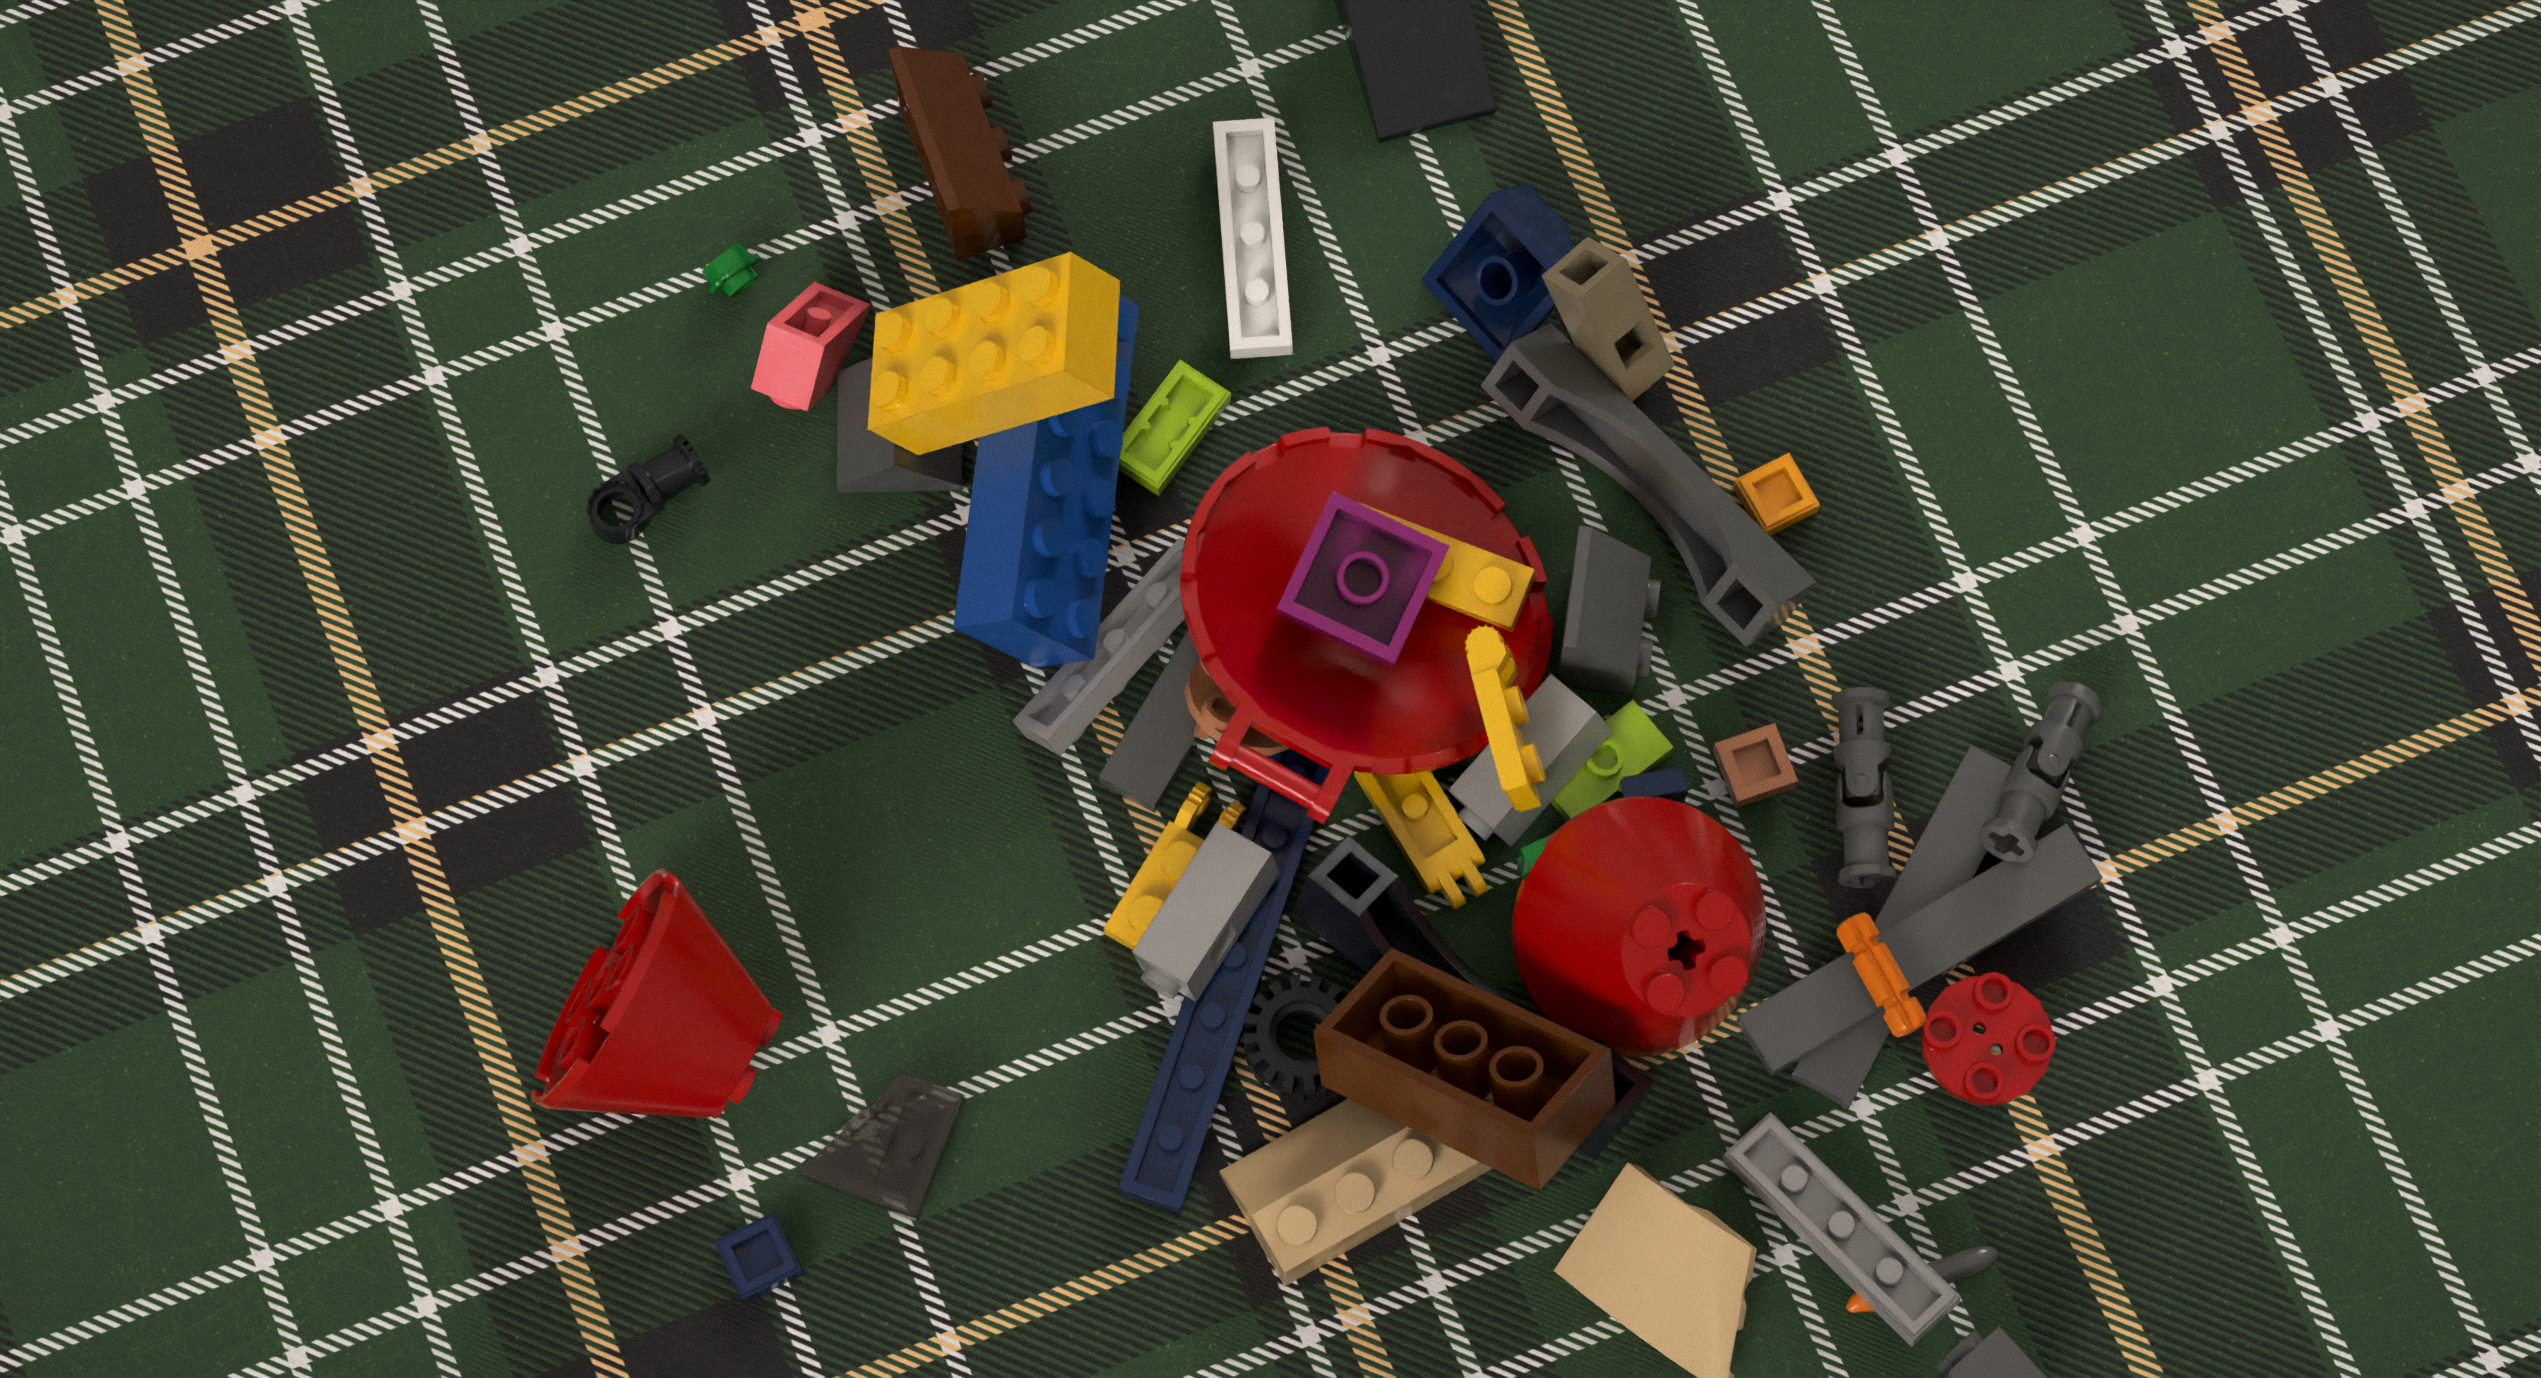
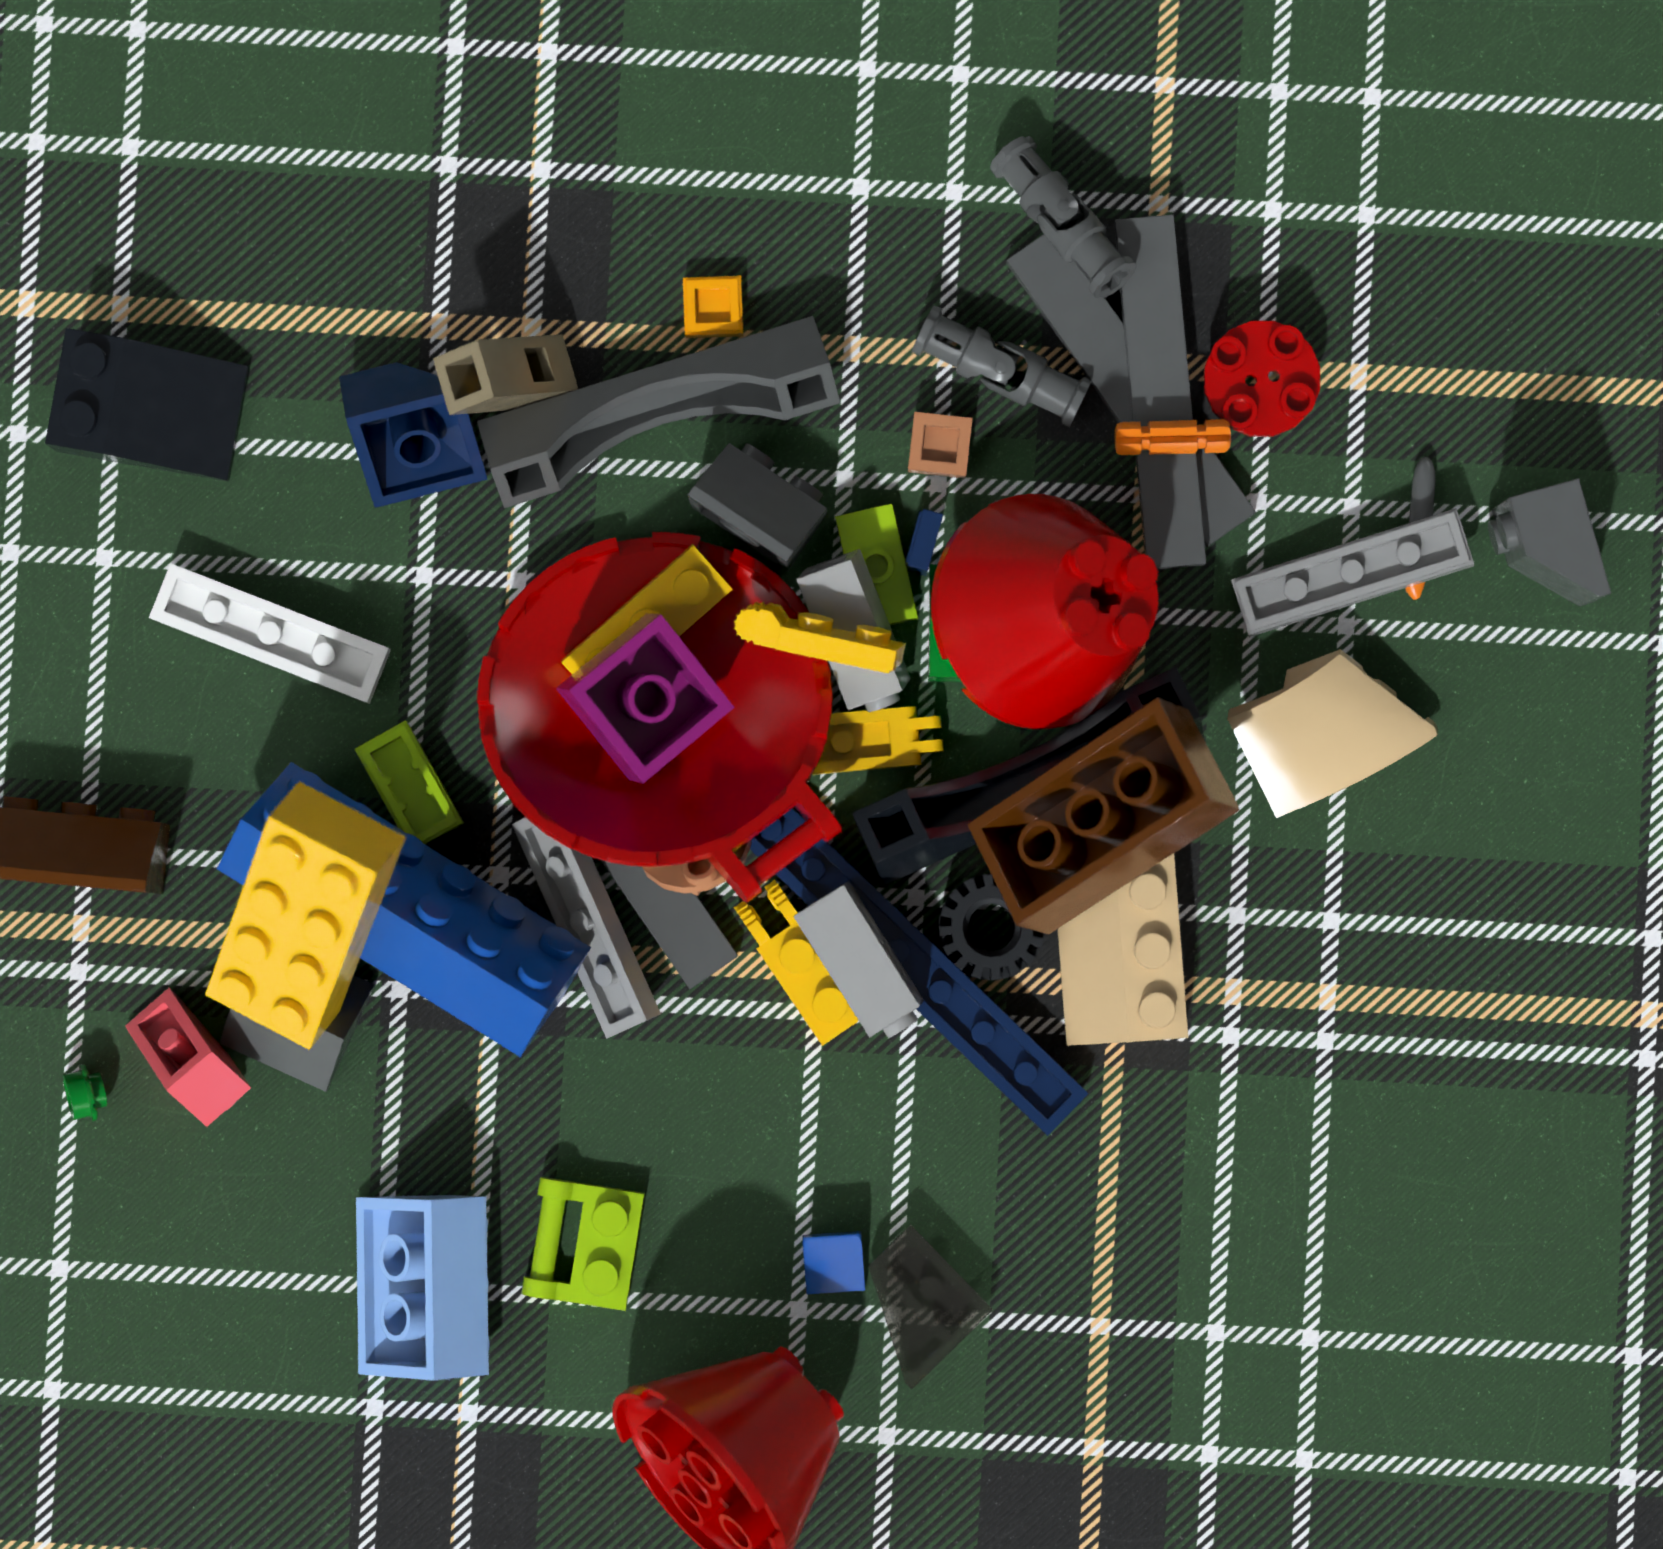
camera: 65 degrees left, 15 degrees up
(646, 489) = (251, 1252): black connector -> none
(688, 660) = (422, 1286): none -> light blue slope
(758, 1257) = (961, 1449): dark blue tile -> none
(803, 814) = (603, 1245): none -> lime plate
(891, 1041) = (833, 1262): none -> blue slope

